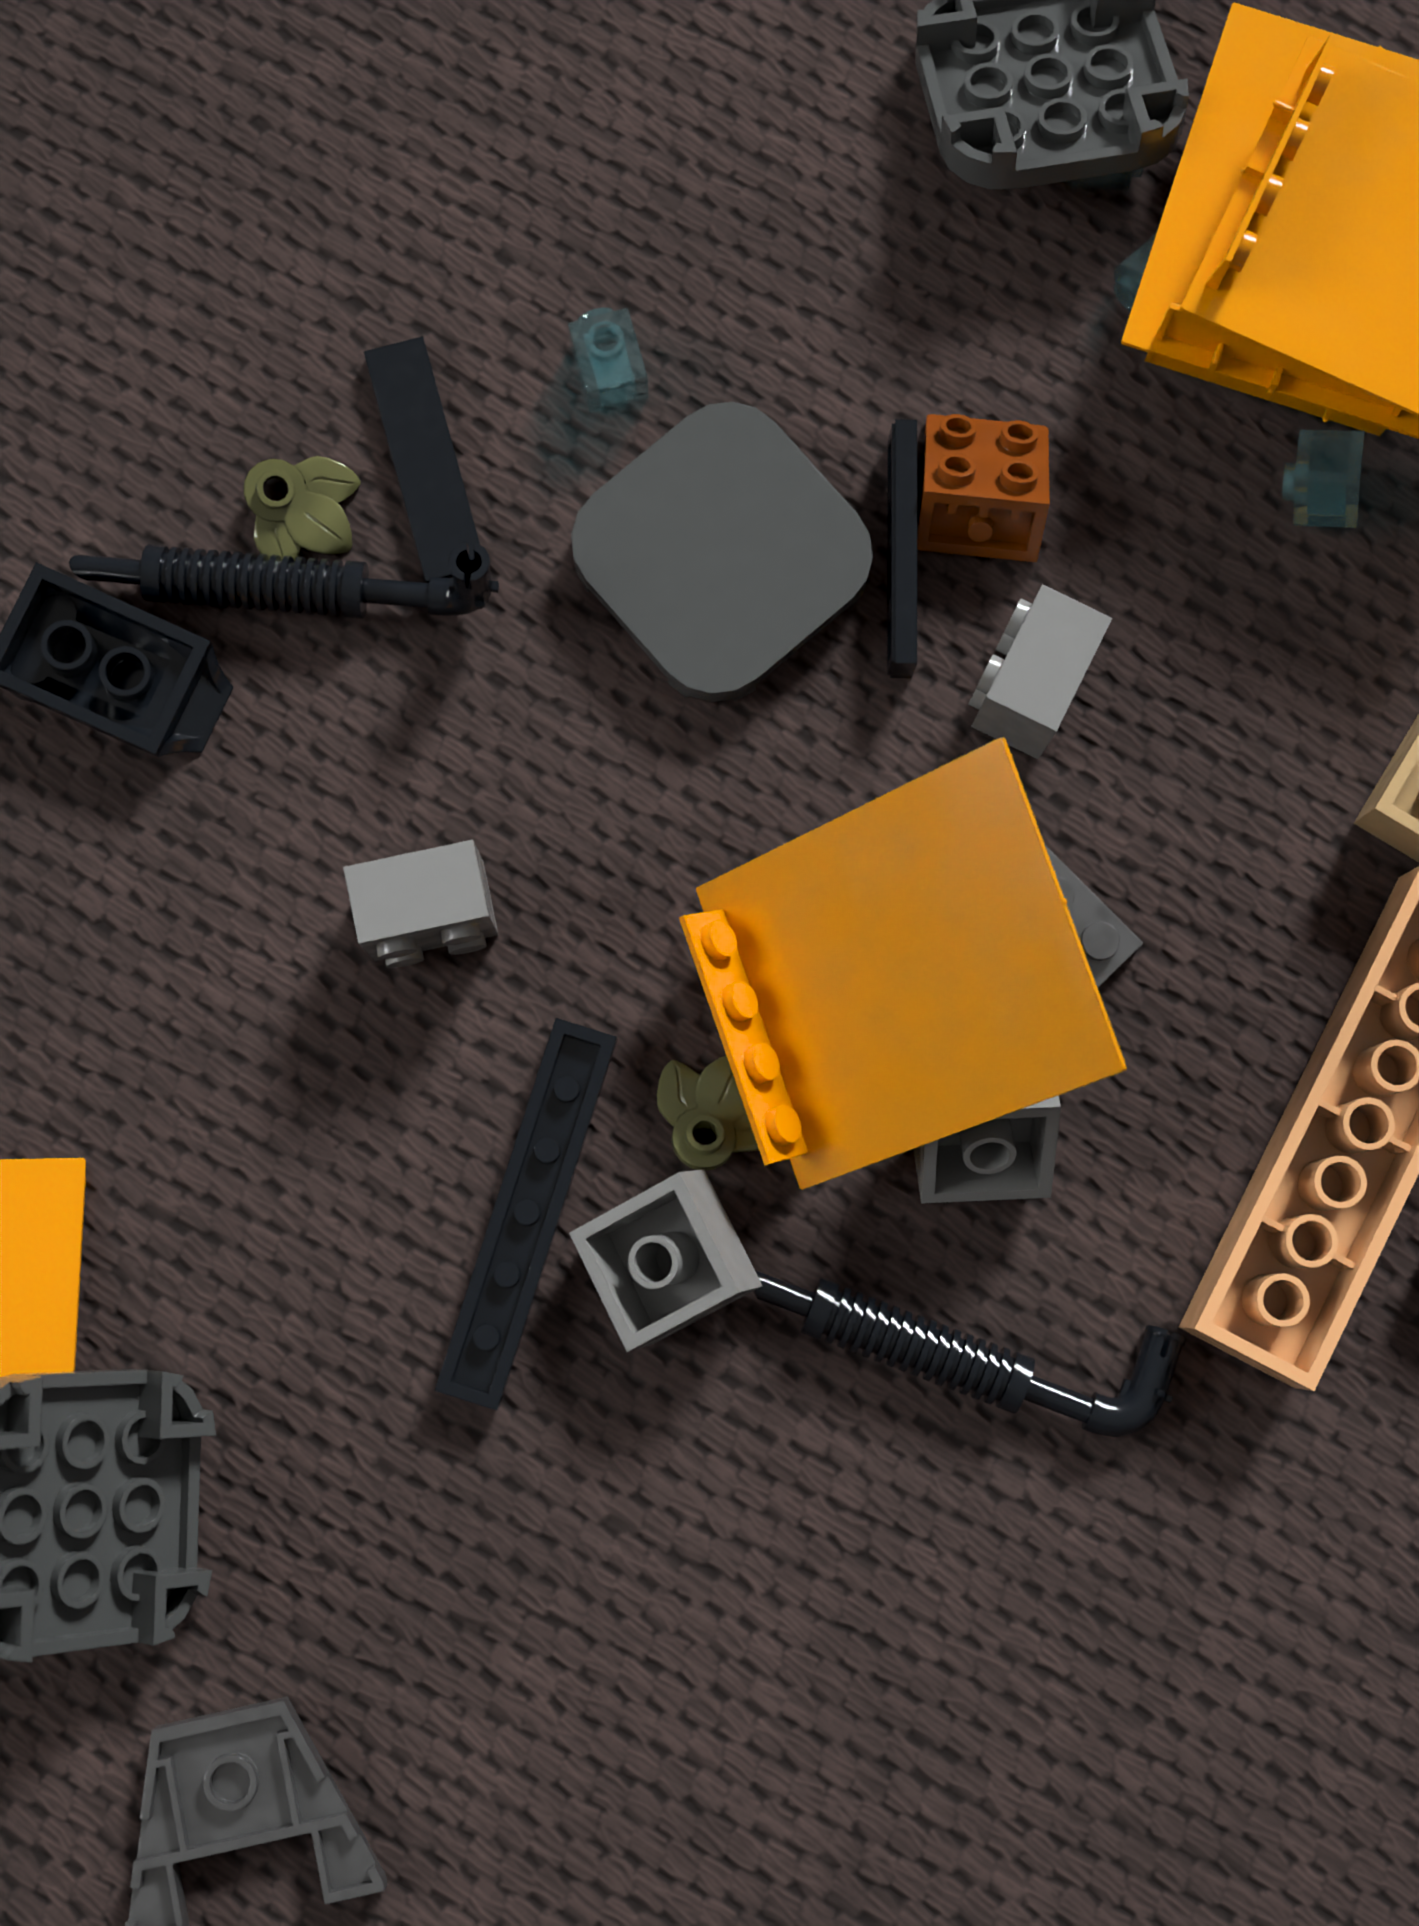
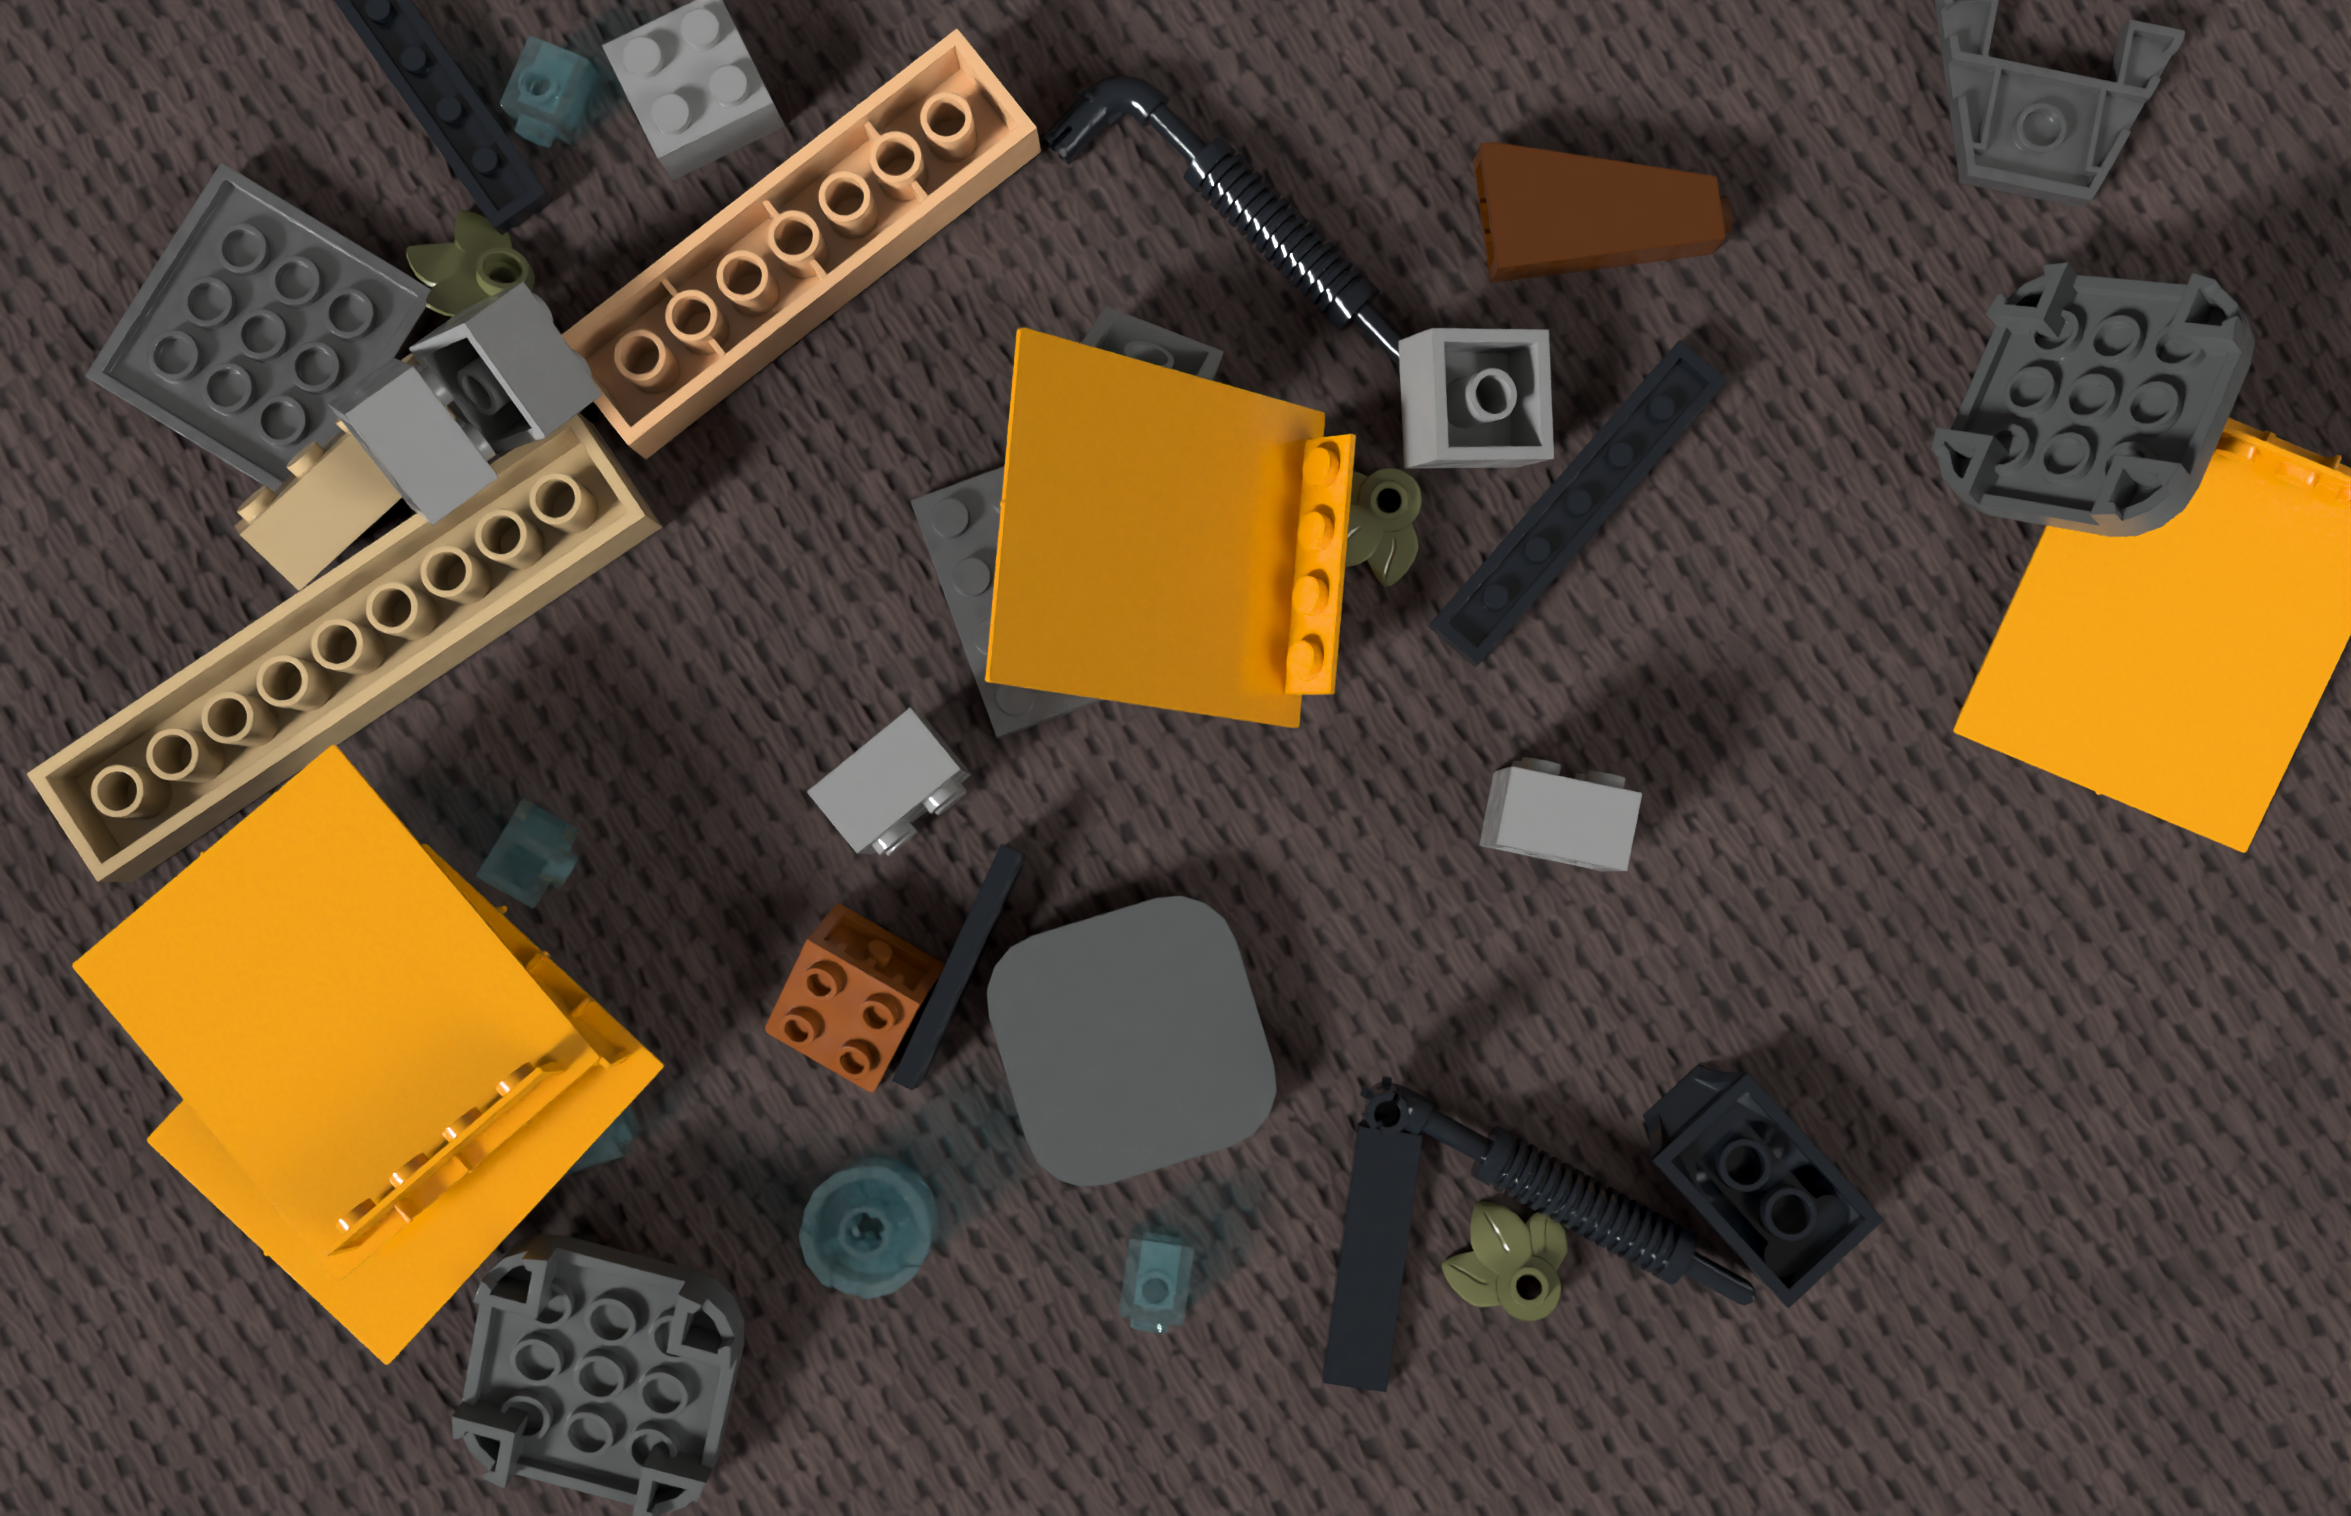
camera: 155 degrees left, 5 degrees up
(640, 1494) = (1590, 213): none -> reddish brown slope
(848, 303) = (859, 1261): none -> clear light blue brick

